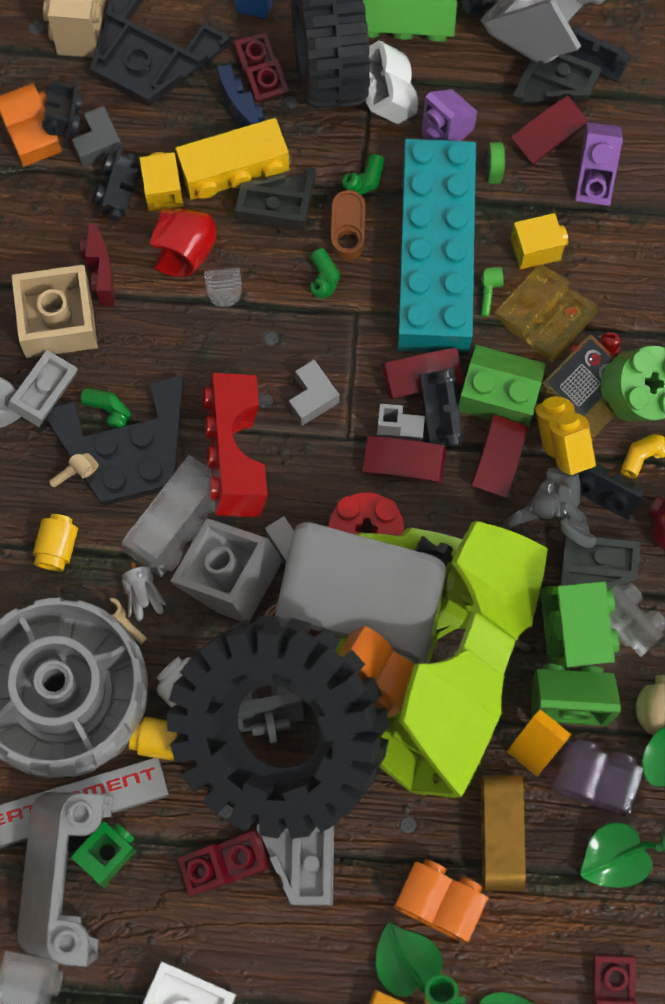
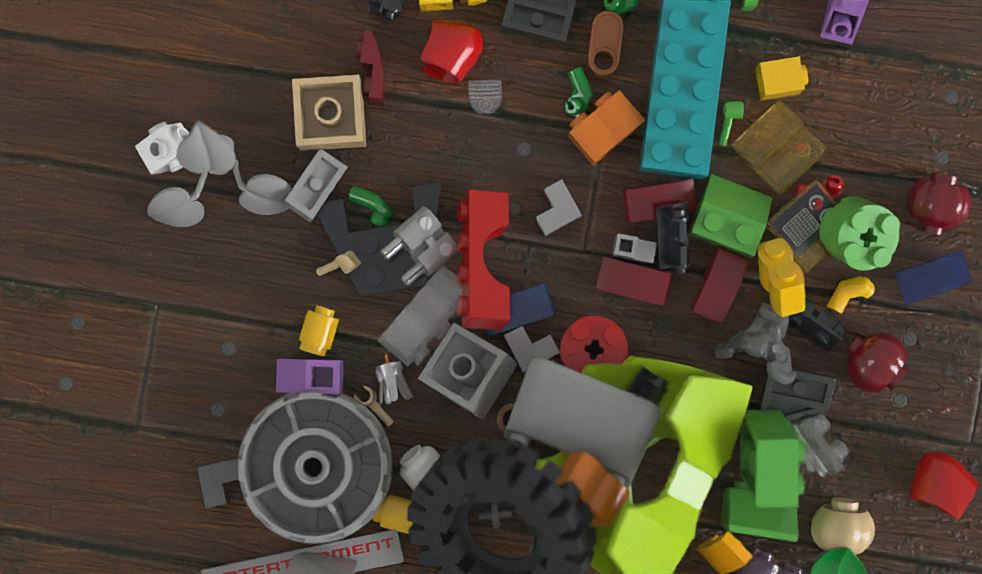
camera: 10 degrees right, 15 degrees up
(47, 582) = (306, 375): none -> medium lavender slope
(167, 433) = (424, 241): none -> light grey piece
(286, 498) = (527, 307): none -> dark blue slope
(356, 304) = (605, 127): none -> orange brick

